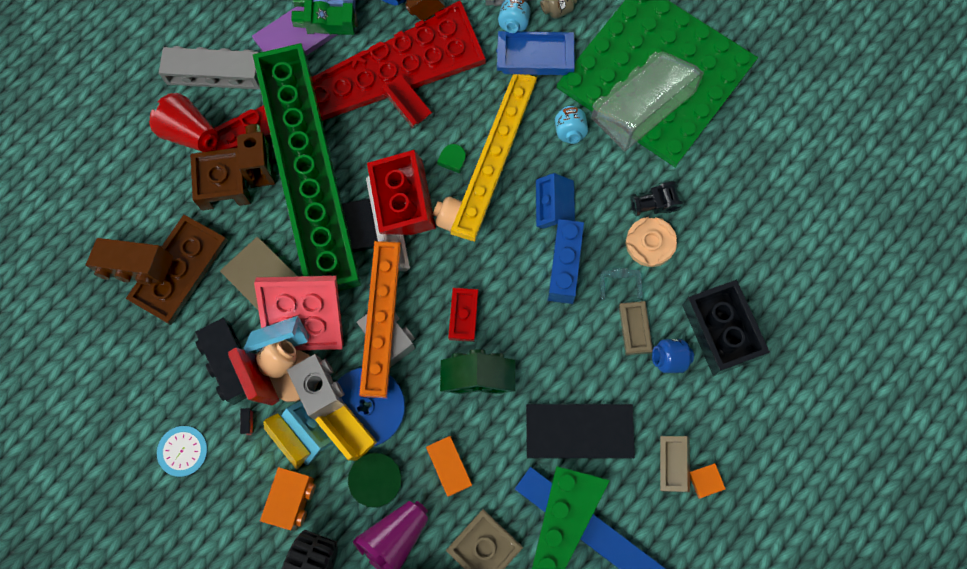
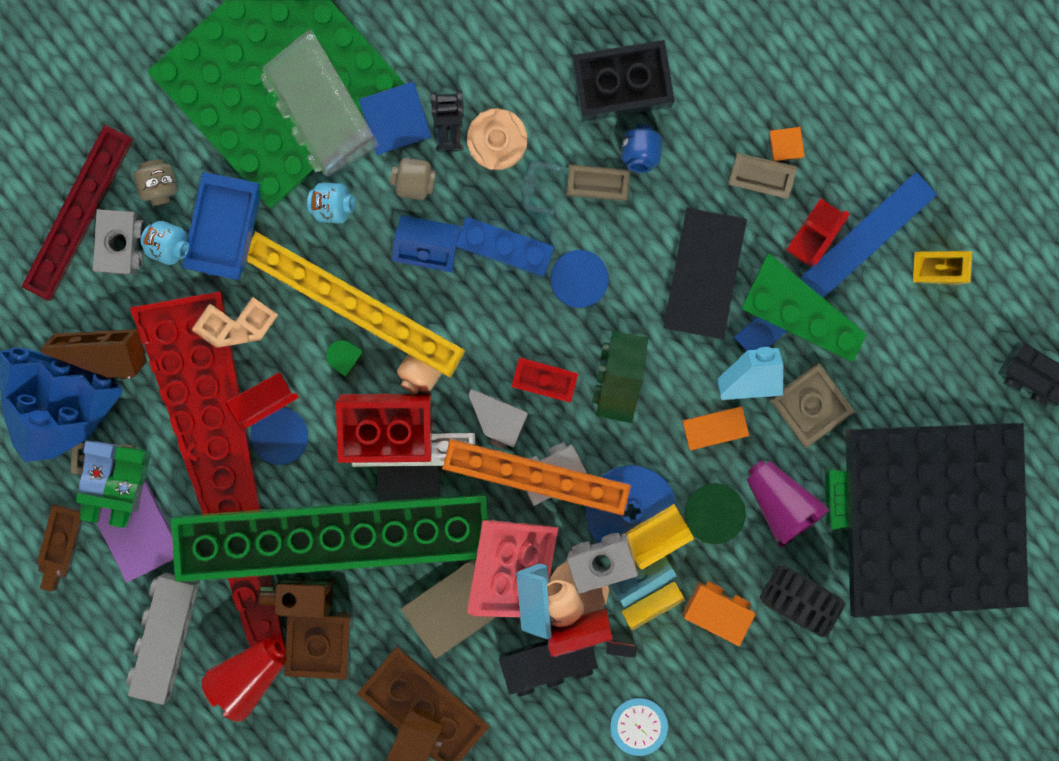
camera: 80 degrees left, 15 degrees up
(382, 124) = (280, 437): none -> blue sticker
(424, 282) = (498, 419): none -> light grey slope
(462, 84) = (224, 331): none -> light nougat tile
(500, 489) = (753, 375): none -> medium azure slope
(552, 329) = (579, 278): none -> blue sticker
(604, 181) = (413, 179): none -> dark tan head
(637, 522) = (817, 233): none -> red panel
(649, 160) = (395, 117): none -> blue sticker

